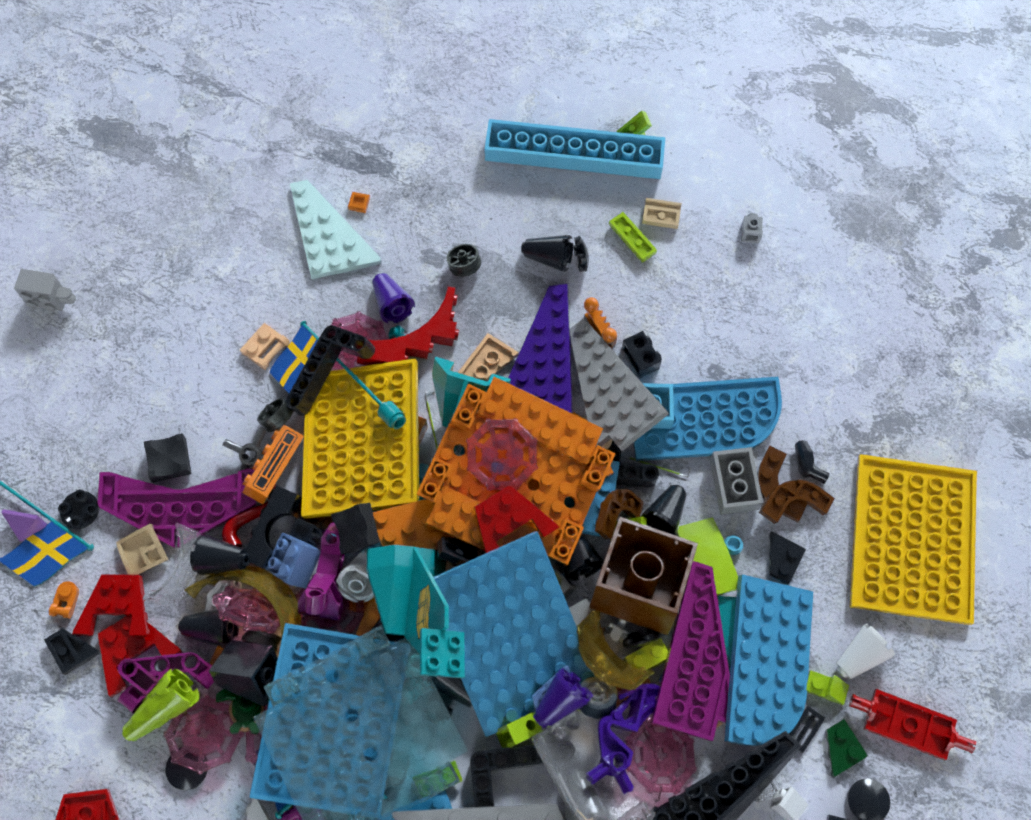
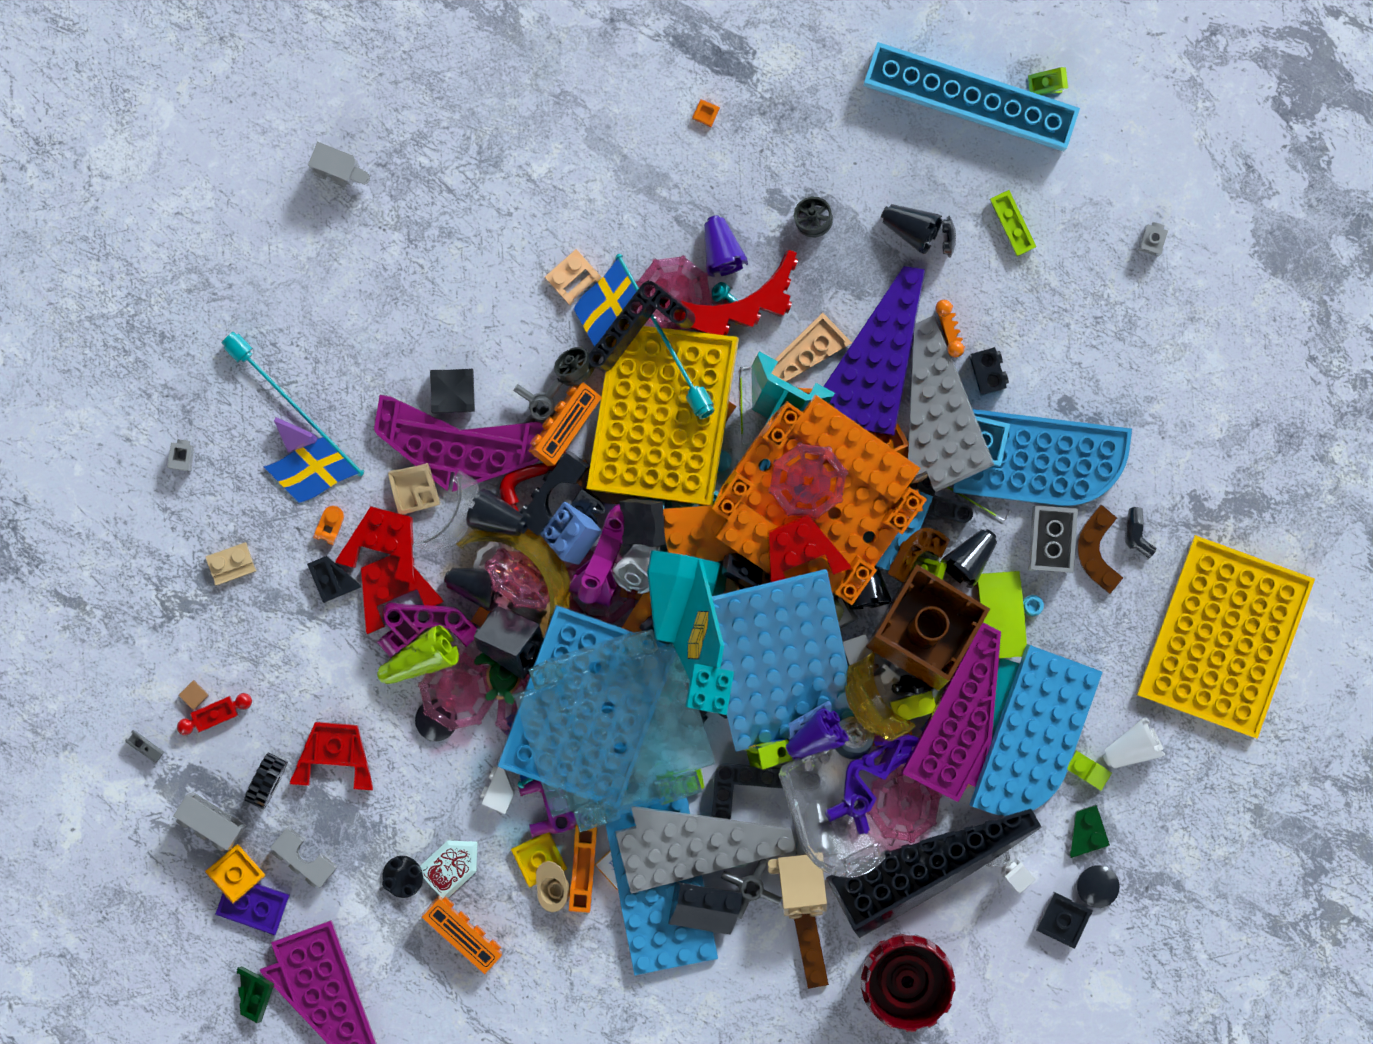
camera: 15 degrees right, 20 degrees up
(79, 509) = (352, 429): black dish -> none
(327, 237) = (662, 152): light aqua wing -> none
(661, 213) = (1054, 199): tan plate -> none
(784, 557) = (1083, 629): black wing -> none
(795, 491) = (1107, 563): reddish brown plate -> none
(813, 714) = (1068, 794): black tile -> none
(911, 724) = (1161, 824): red plate -> none

